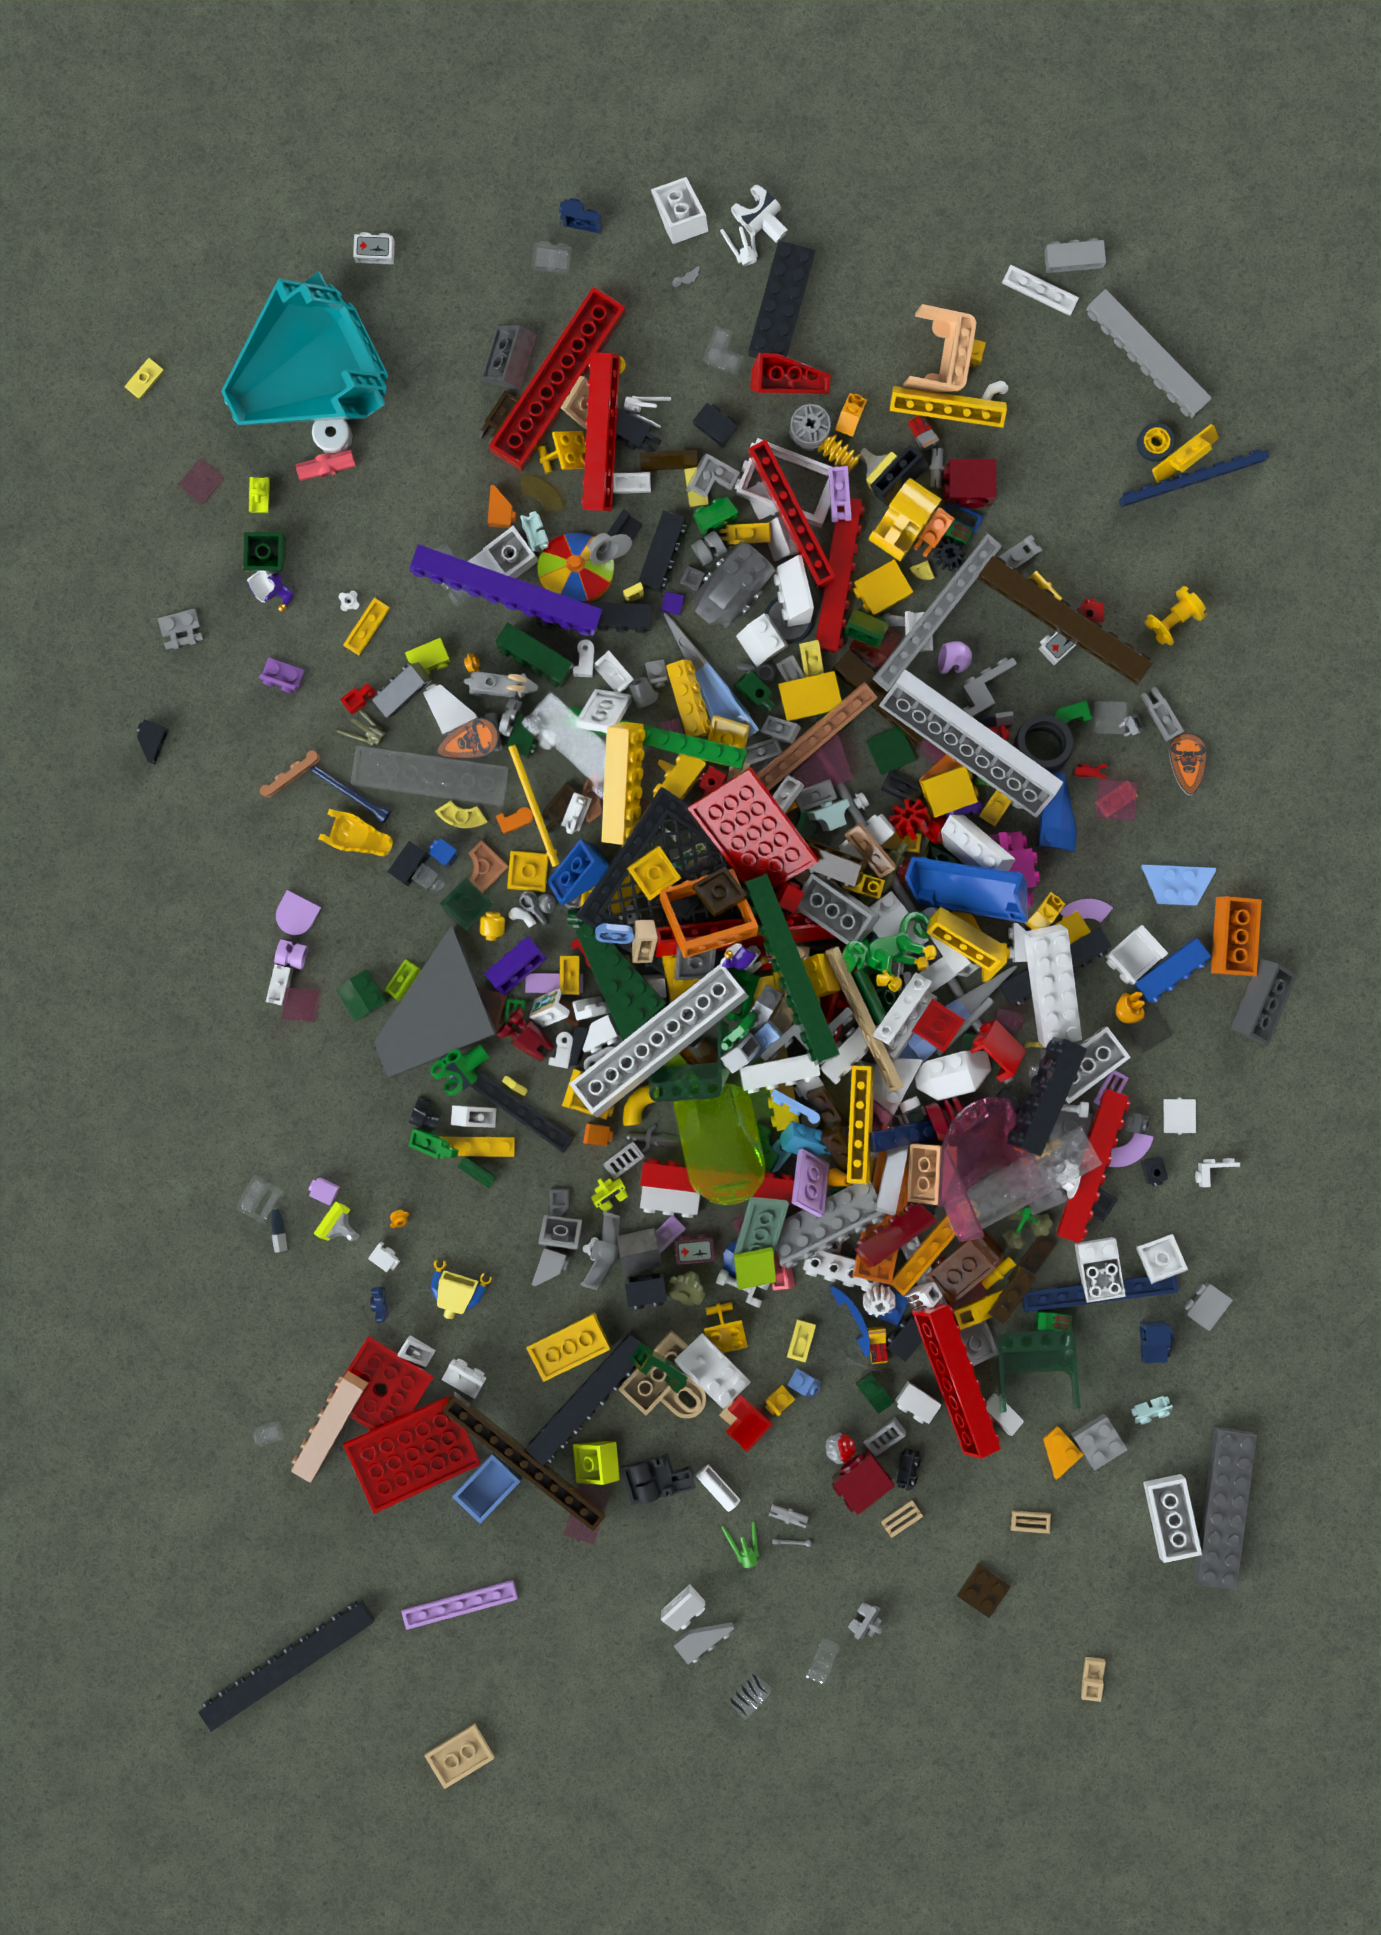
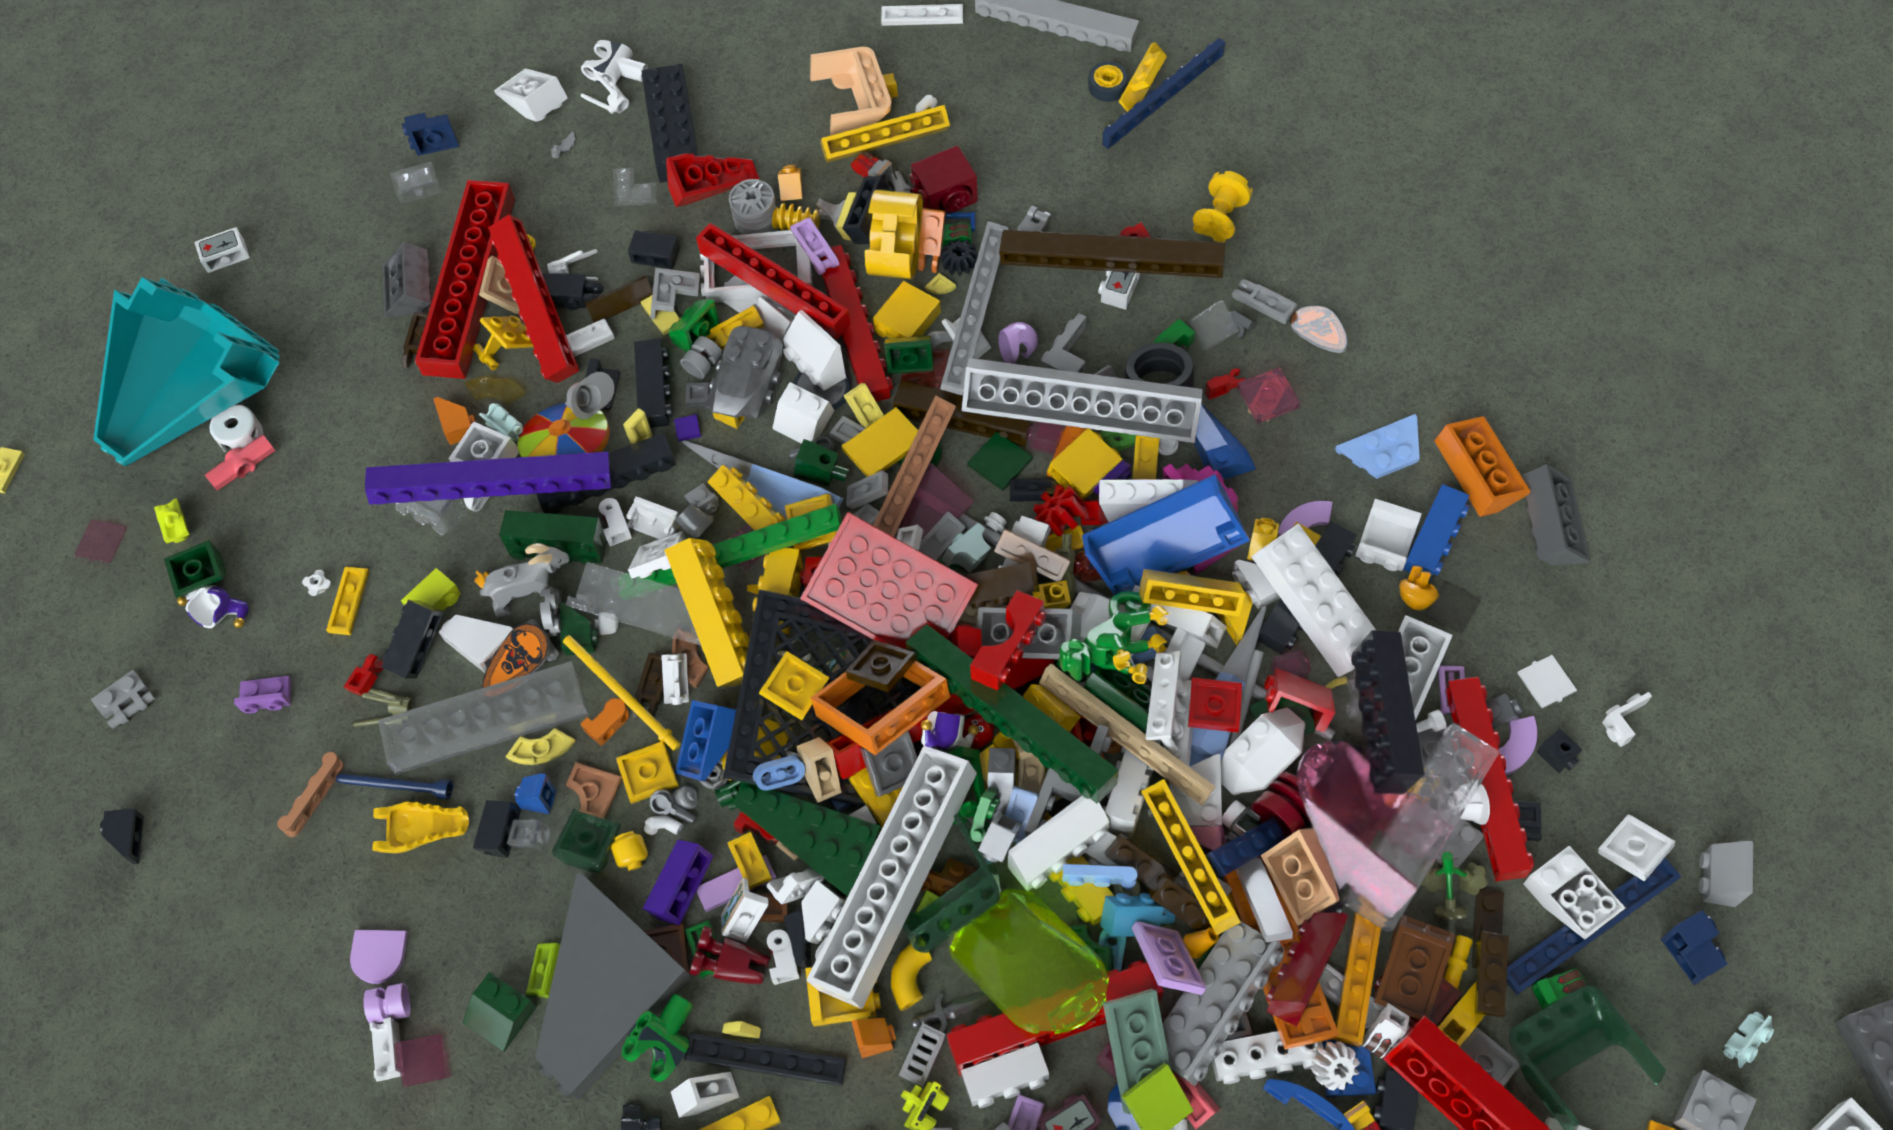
camera: 25 degrees left, 25 degrees down
(796, 933) = (995, 663): none -> red arch

